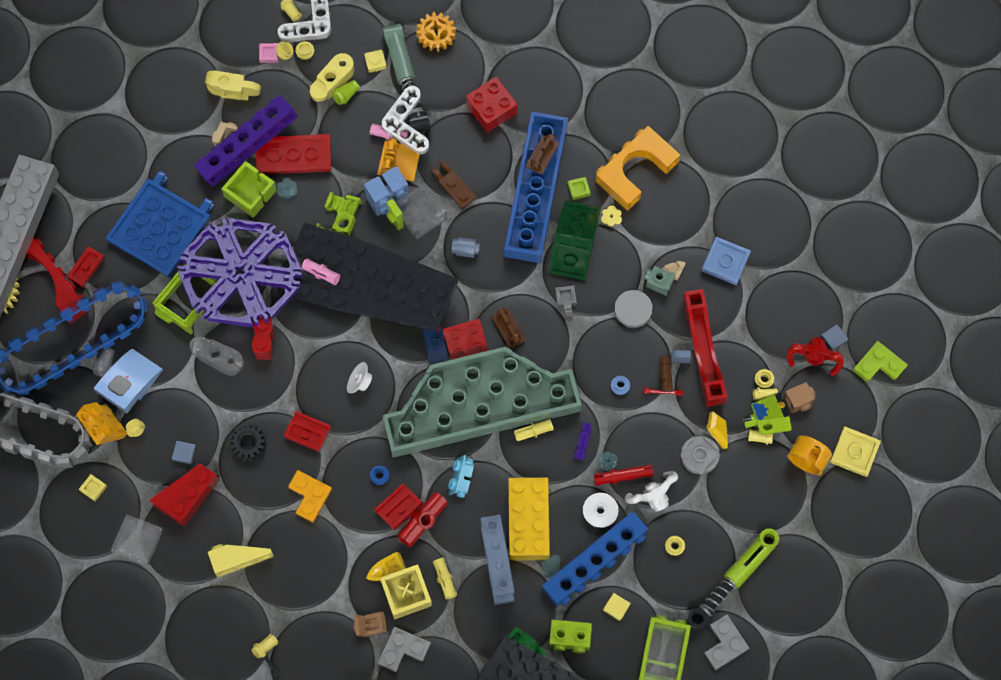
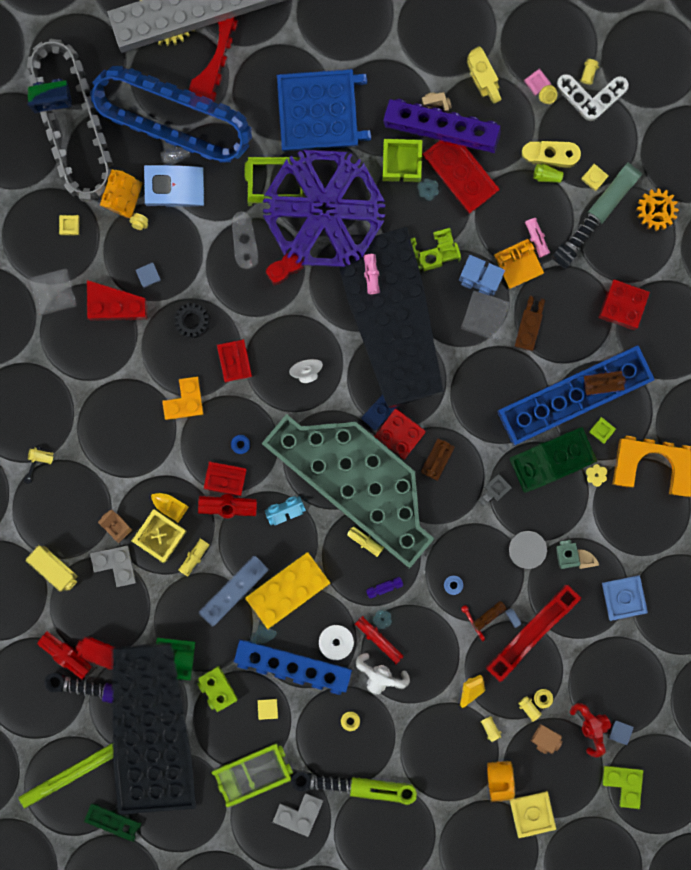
camera: 55 degrees right, 15 degrees up
(85, 267) = (242, 77): red plate -> none
(232, 558) = (91, 379): light yellow slope -> none
(304, 50) = (561, 111): light yellow plate -> none
(395, 214) = (464, 297): lime plate -> none
(399, 119) = (552, 238): white beam -> none
(465, 247) = (481, 374): sand blue brick -> none
(700, 455) = (441, 689): light grey tile -> none
(769, 416) = (511, 725): lime torso -> none

